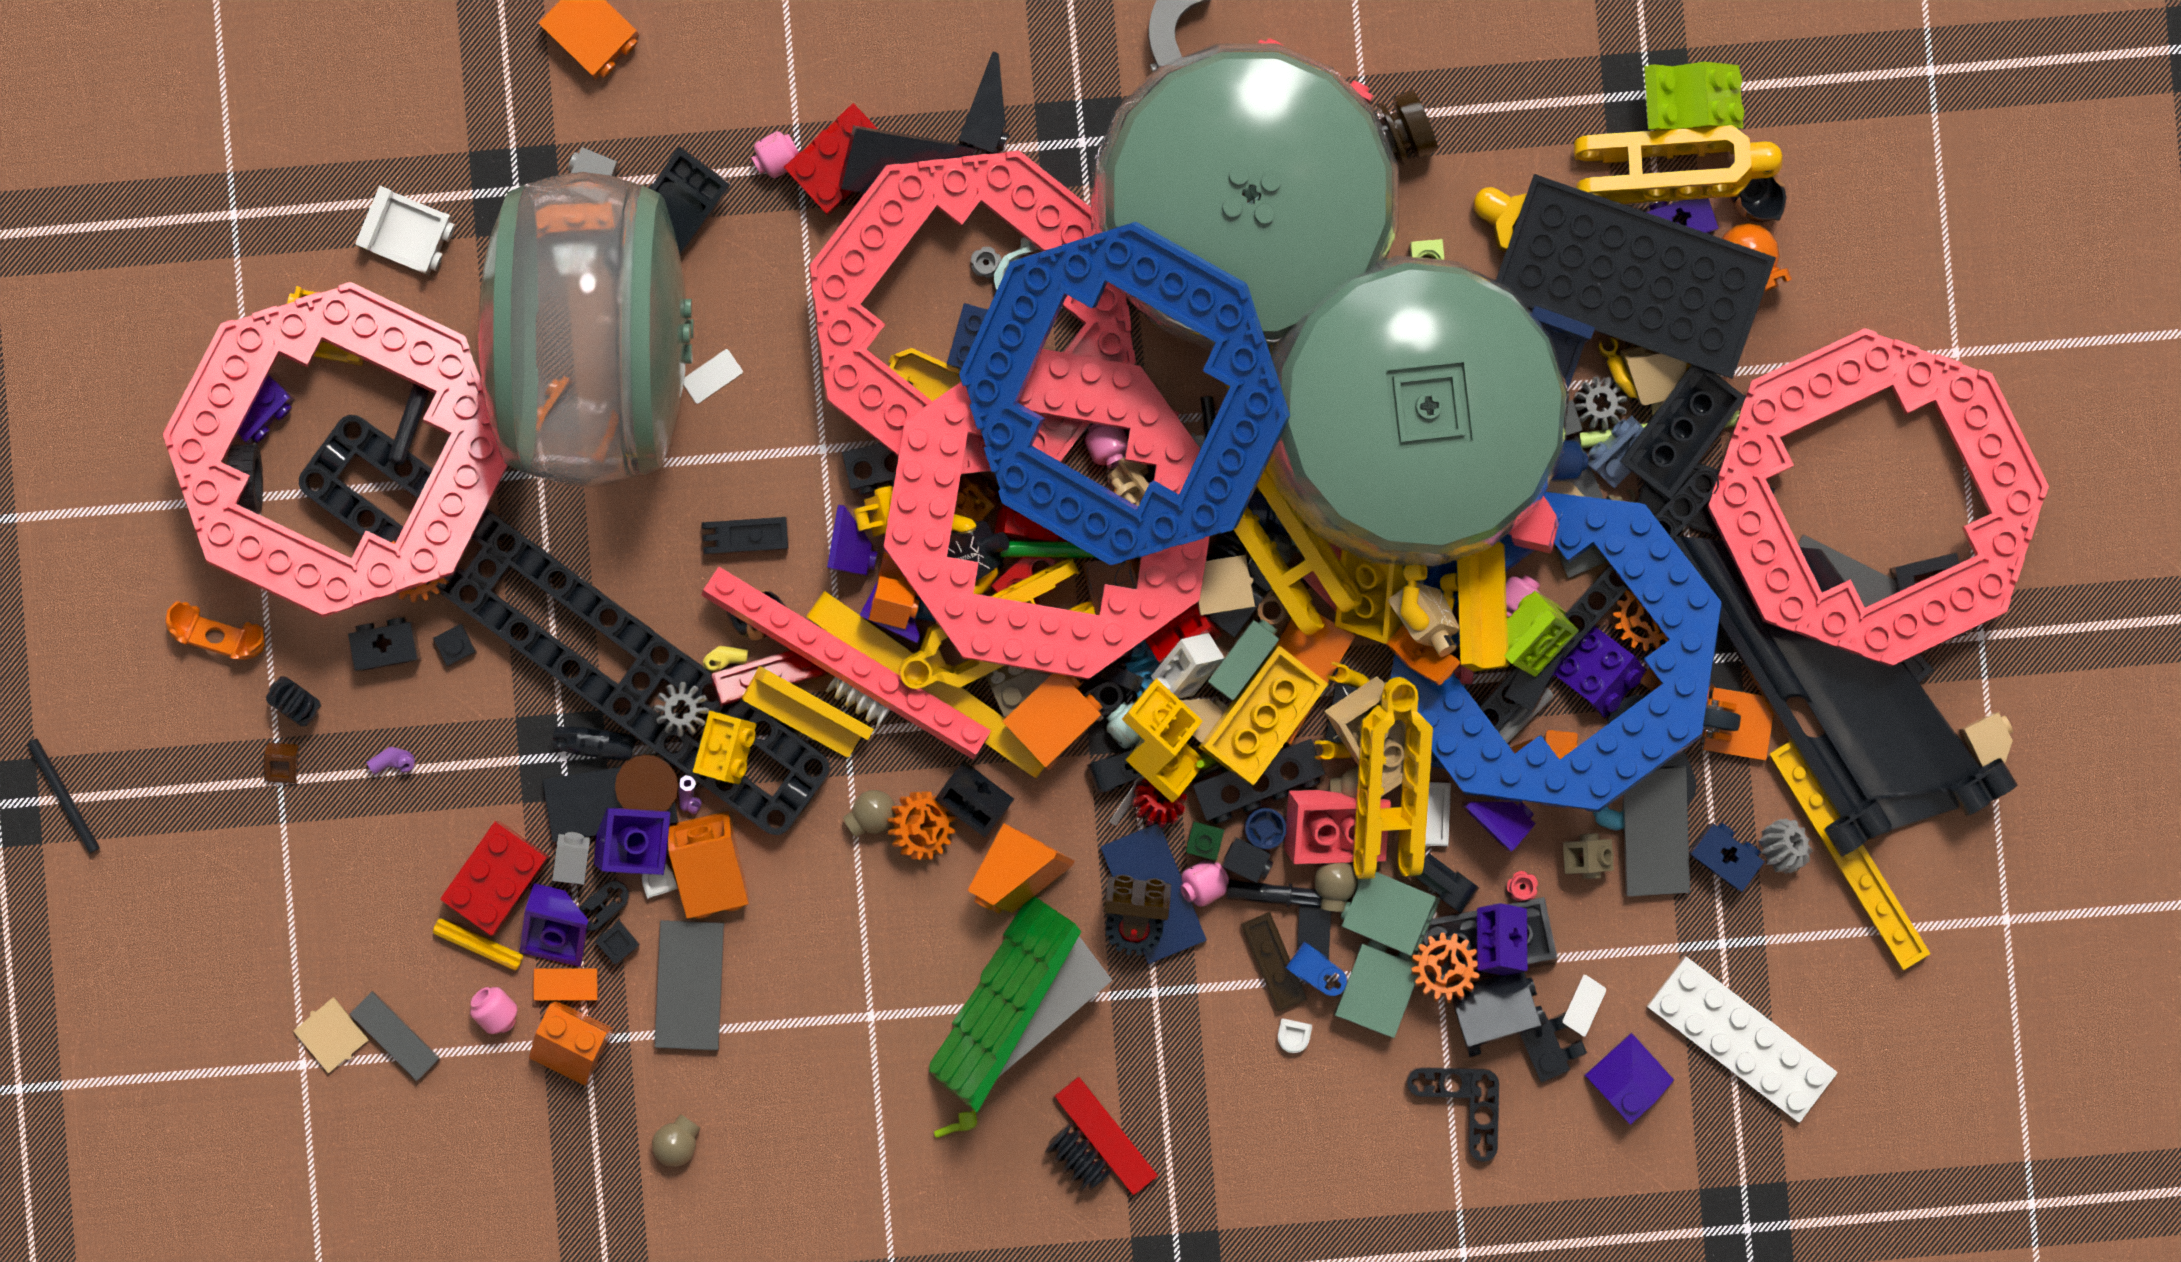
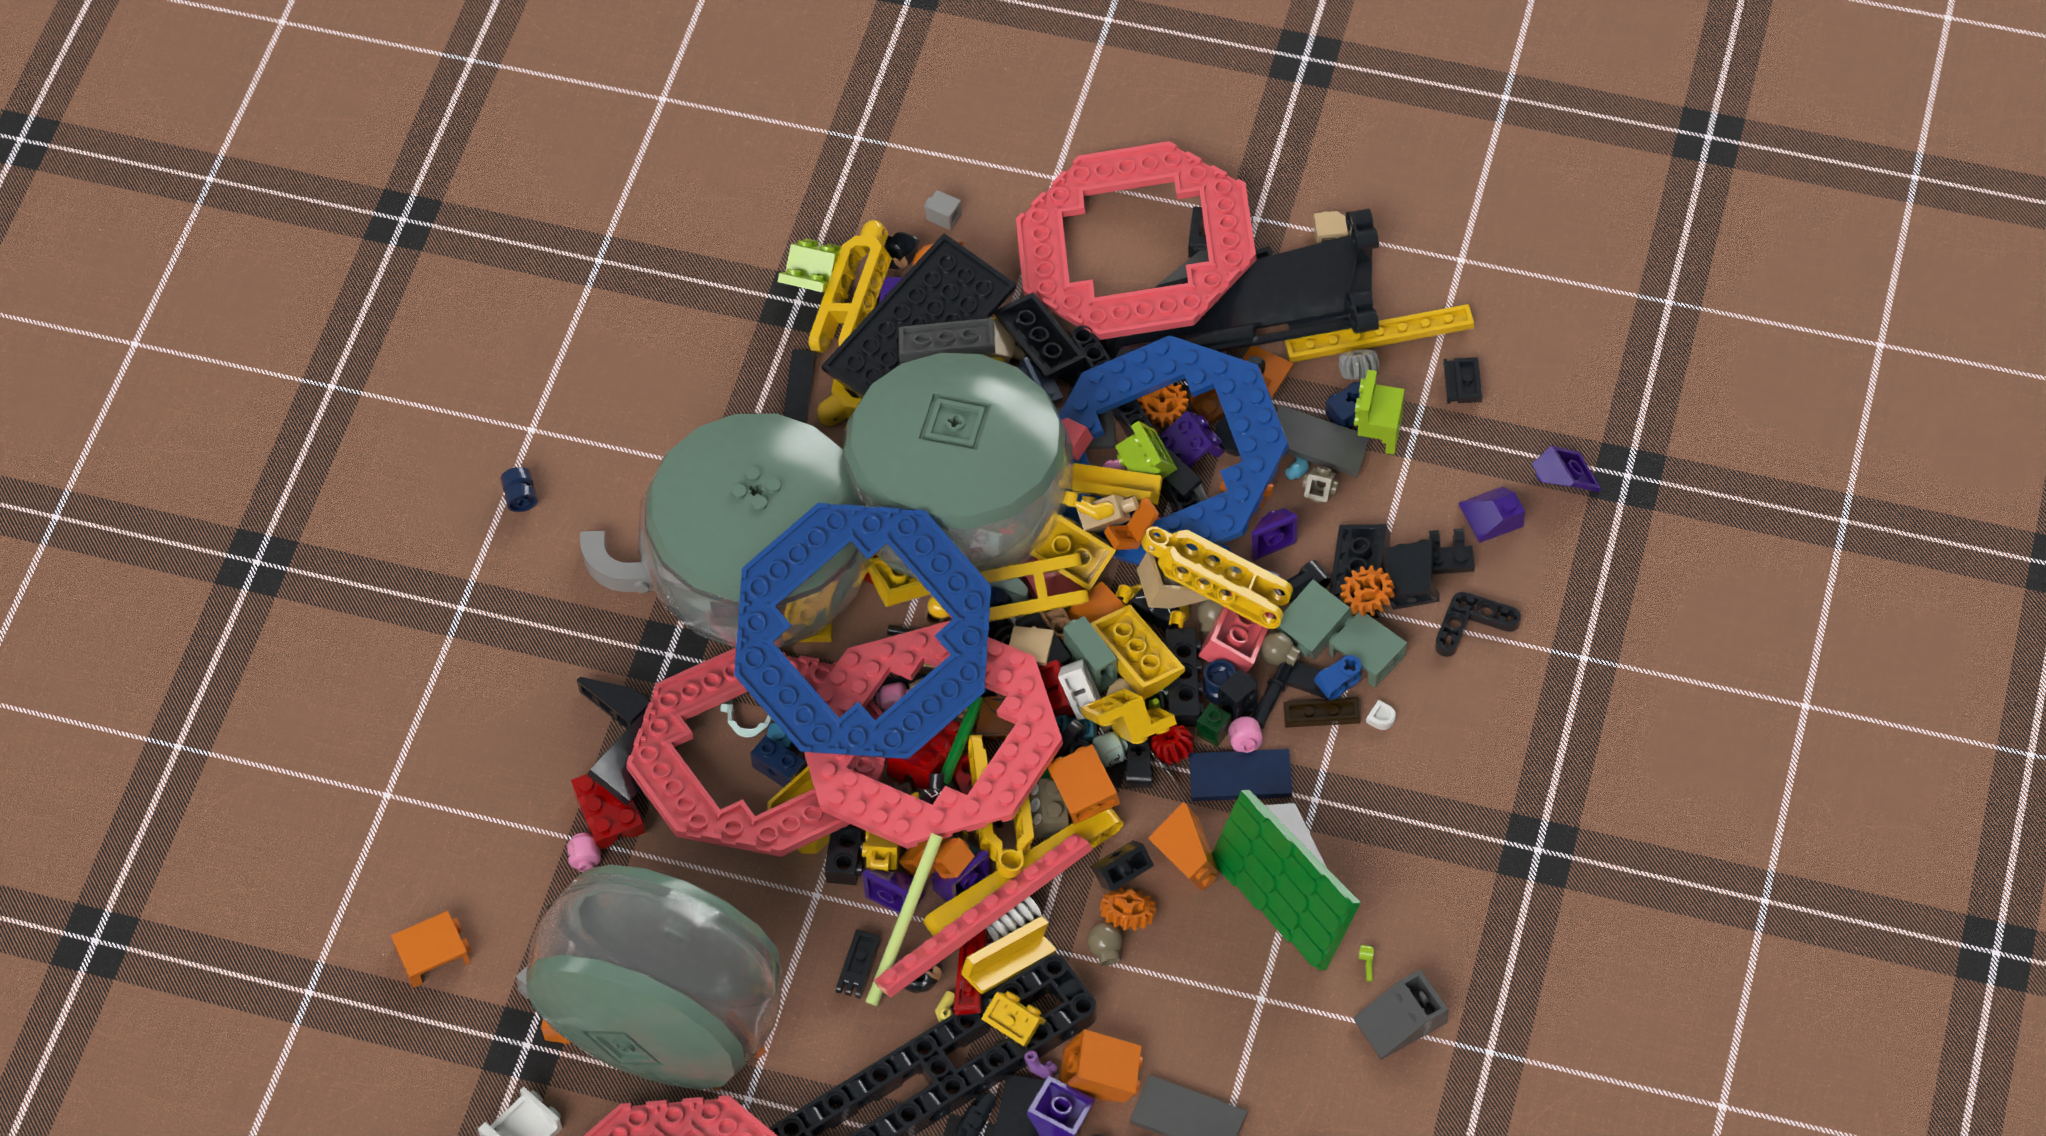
camera: 70 degrees left, 30 degrees down
(646, 784) = (1018, 1090): reddish brown tile -> none
(659, 884) = (1099, 1114): white tile -> none
(687, 718) = (972, 1046): light grey gear -> none
(807, 574) = (906, 914): none -> yellowish green piece
(895, 1188) = (1402, 1015): none -> dark grey slope
(979, 256) = (724, 734): light grey plate -> none
(1077, 1158) = (1422, 881): black piece -> none
(1106, 1135) = (1412, 863): red tile -> none
(1136, 912) = (1251, 775): dark brown plate -> none
(1502, 939) = (1359, 547): dark purple brick -> none
(1509, 151) = (800, 385): none -> black tile
(1519, 878) = (1326, 531): coral plate -> none
(1584, 1005) = (1428, 522): white sticker -> none
(1613, 323) = (948, 337): none -> dark grey tile
(1711, 899) = (1379, 411): none -> lime bracket
(1716, 1155) = (1565, 469): none -> dark purple slope
(1742, 1039) = (1488, 437): white plate -> none
(1813, 981) = (1462, 380): none -> black plate
(1847, 228) = (943, 210): none -> light grey brick

